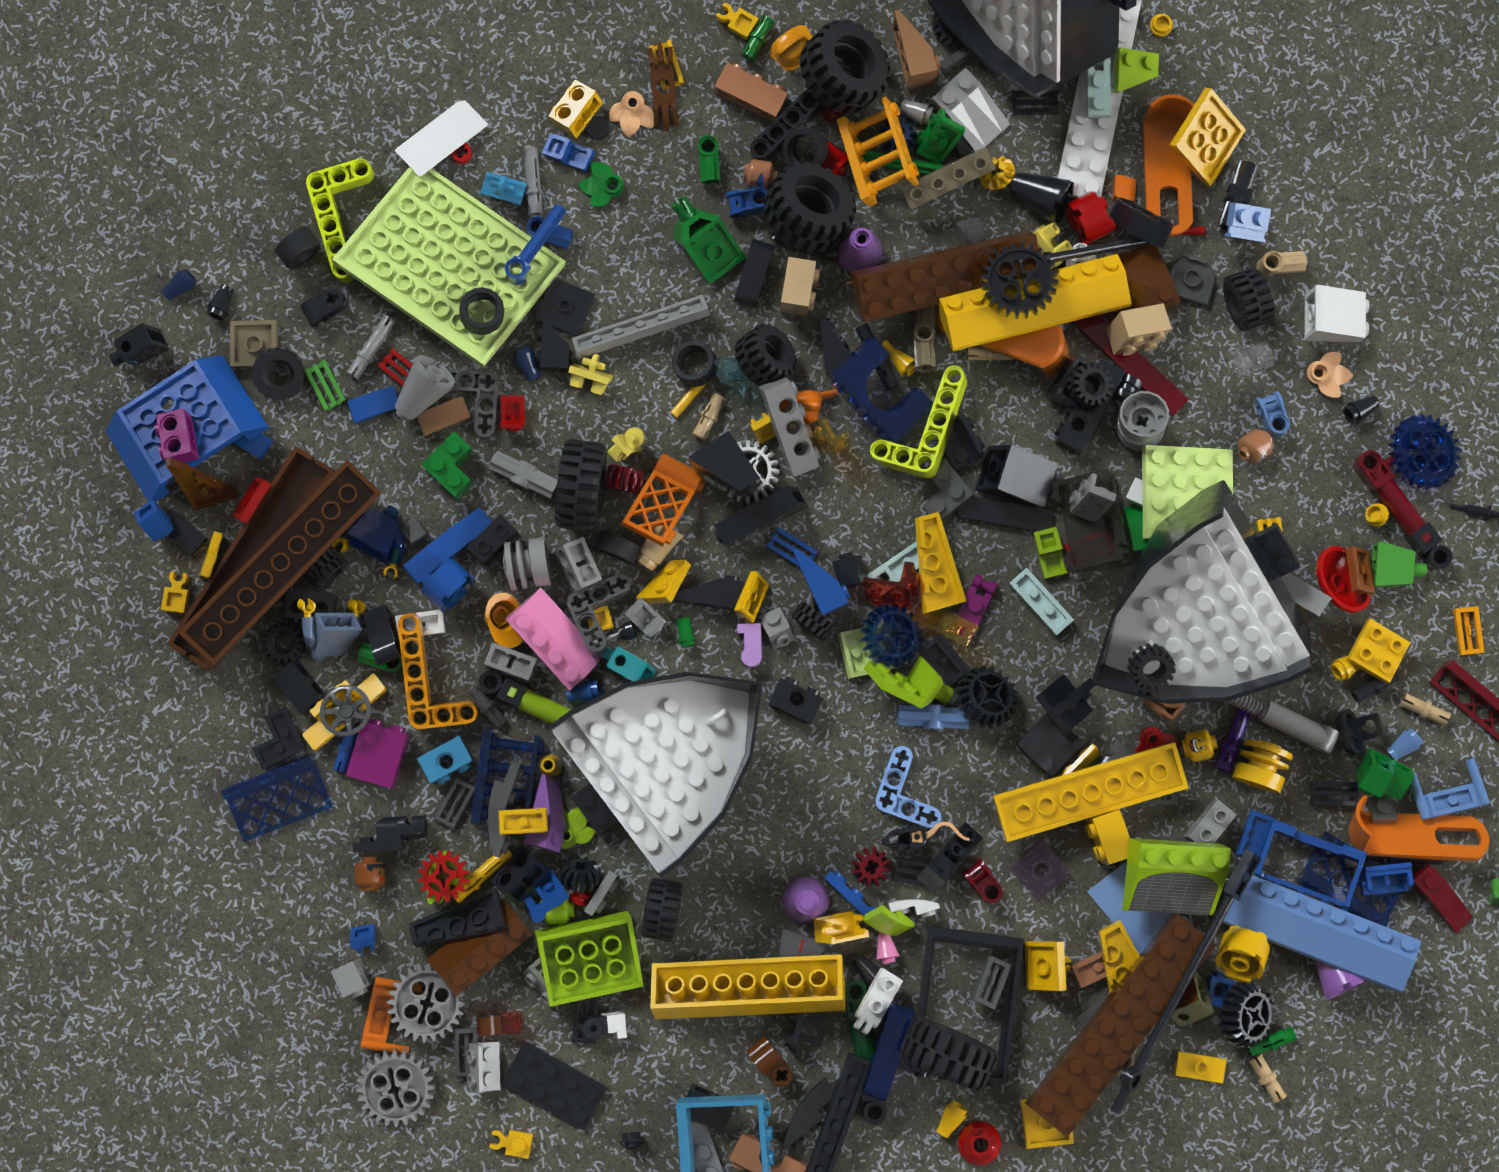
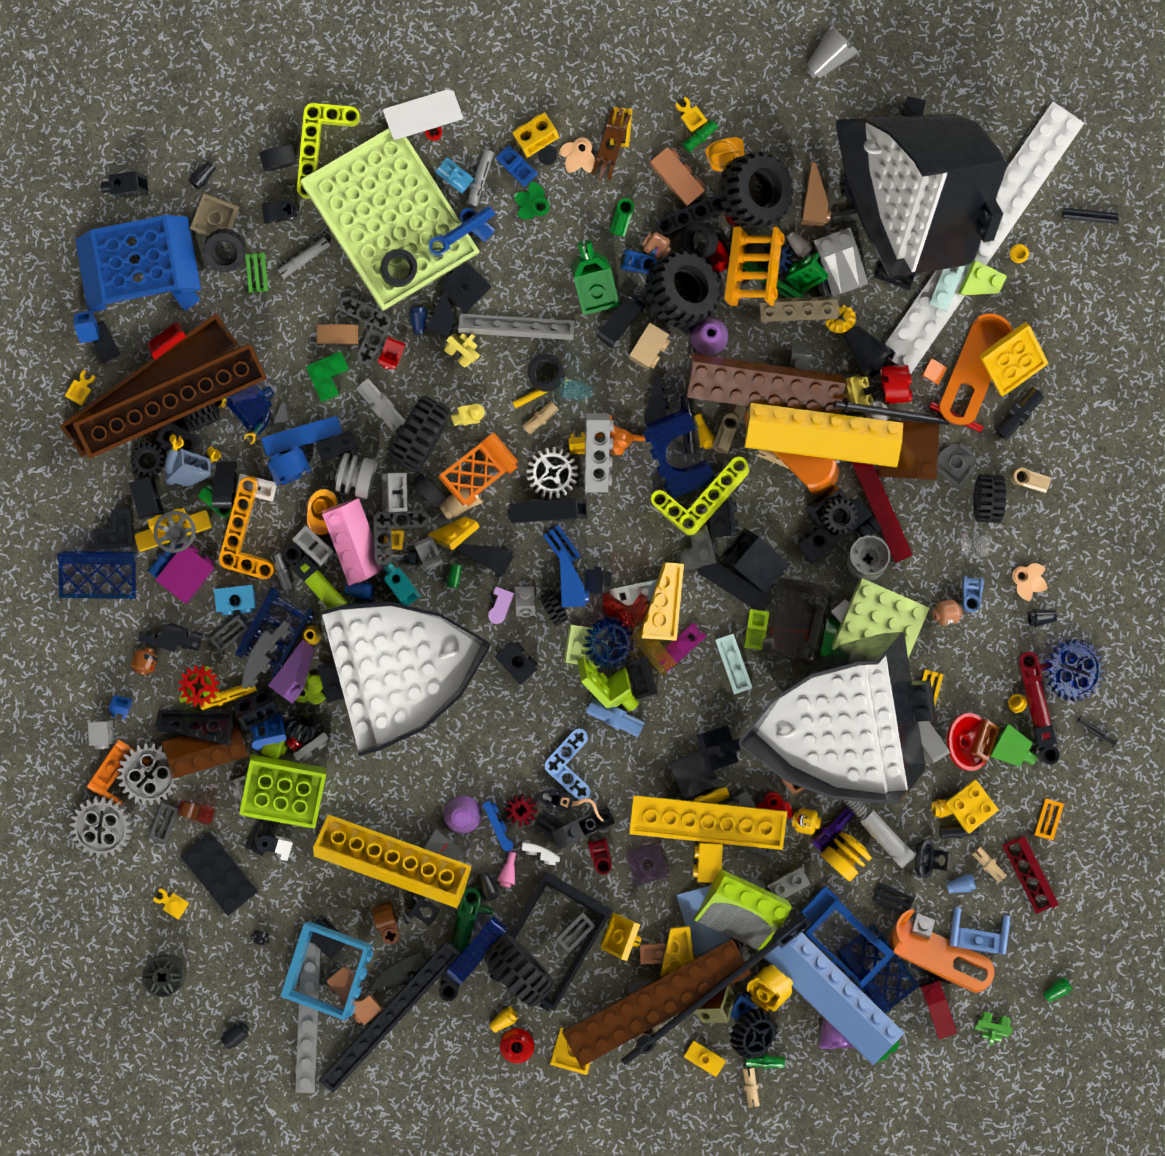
camera: 20 degrees right, 5 degrees up
(179, 284) = (177, 147): dark blue cone -> none
(181, 435) = (134, 272): magenta brick -> none
(198, 486) = (131, 315): reddish brown wing -> none
(211, 555) = (118, 371): yellow tile -> none
(372, 404) = (288, 303): blue slope -> none
(388, 359) = (313, 272): red tile -> none
(423, 387) = (331, 307): light grey cone -> none
(484, 1066) = (172, 838): light grey bracket -> none
(523, 821) = (274, 670): yellow plate -> none
(624, 478) = (455, 440): dark red gear -> none
(662, 910) = (351, 778): black tyre -> none
(727, 465) = (536, 464): black slope -> none
(749, 594) = (513, 573): yellow tile -> none
(765, 354) = (601, 390): black tyre -> none
(826, 436) = (622, 470): clear yellow bracket -> none
(839, 928) = (478, 845): yellow hinge -> none
(876, 1000) = (483, 910): white hinge -> none
(888, 922) = (515, 856): lime slope -> none
(976, 686) = (654, 705): black gear -> none
(998, 283) = (833, 418): black gear -> none
(1091, 501) = (801, 604): light grey bracket -> none
(1138, 329) = (895, 487): tan brick -> none
(1141, 222) = (933, 404): black beam -> none
(1160, 675) = (786, 759): black tyre -> none
(1247, 222) = (1016, 437): plate -> none
(1335, 315) = (1053, 537): white slope -> none
(1383, 776) = (934, 900): green brick -> none
(1386, 879) = (902, 978): blue hinge -> none

